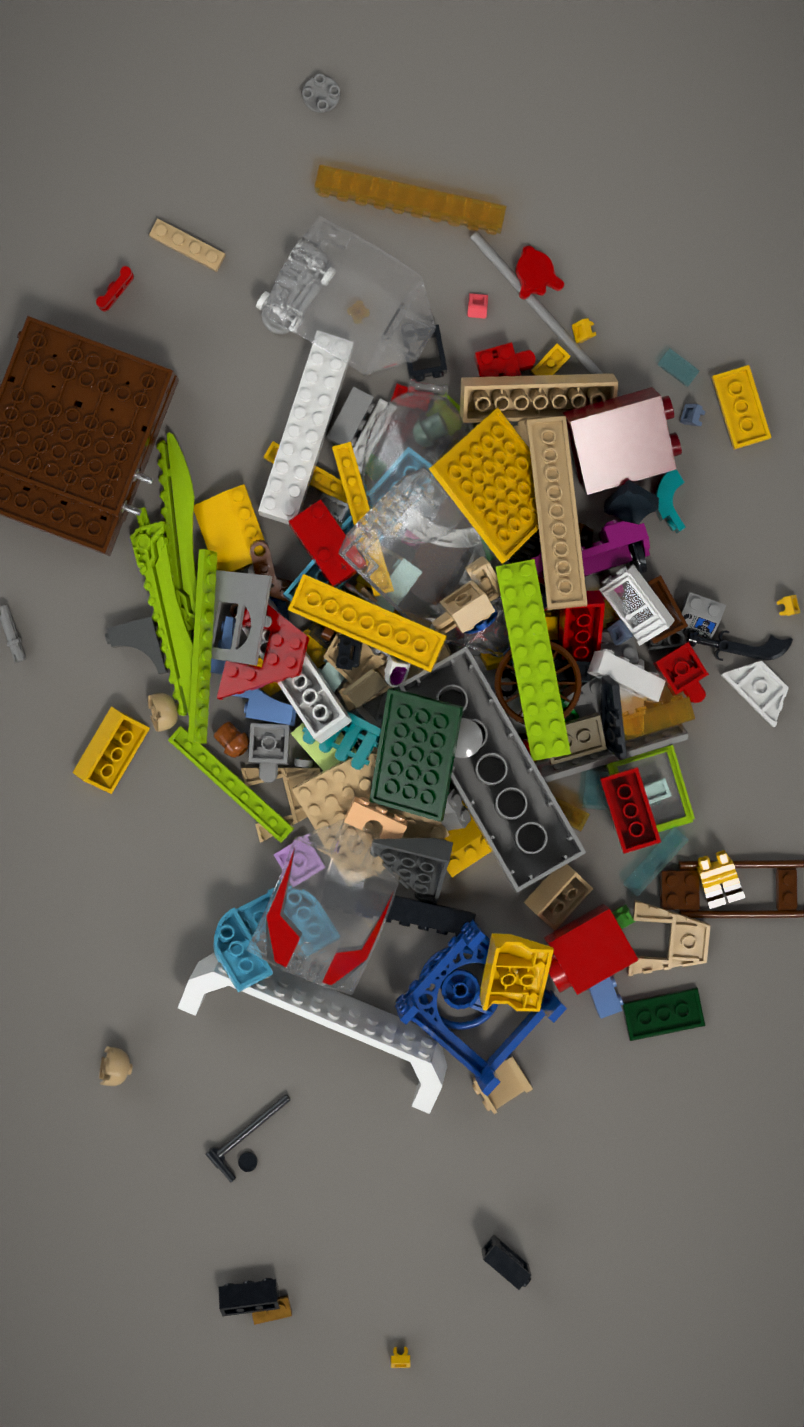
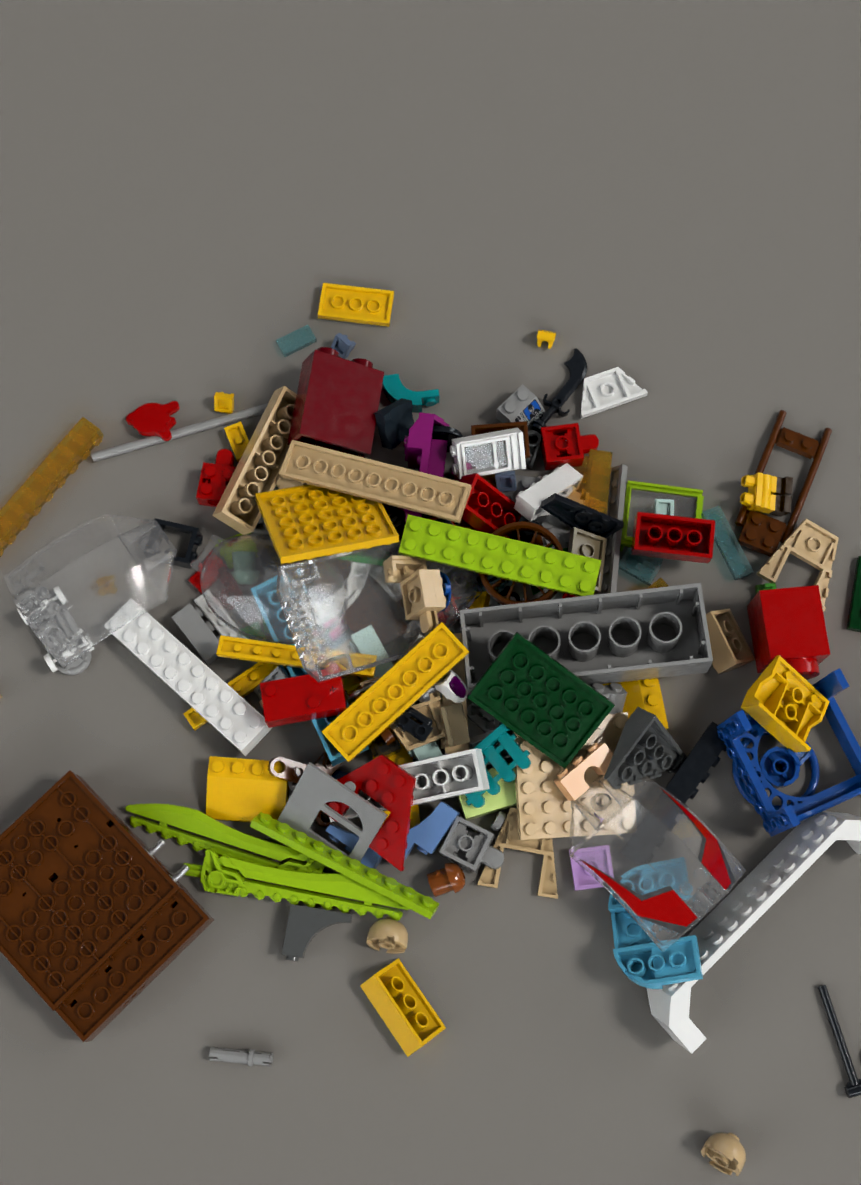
camera: 65 degrees left, 15 degrees down
(232, 785) = (488, 900): lime plate -> none
(469, 739) = (549, 642): light grey dish -> none
(477, 306) = (156, 481): coral slope -> none
(605, 997) = (841, 639): medium blue brick -> none

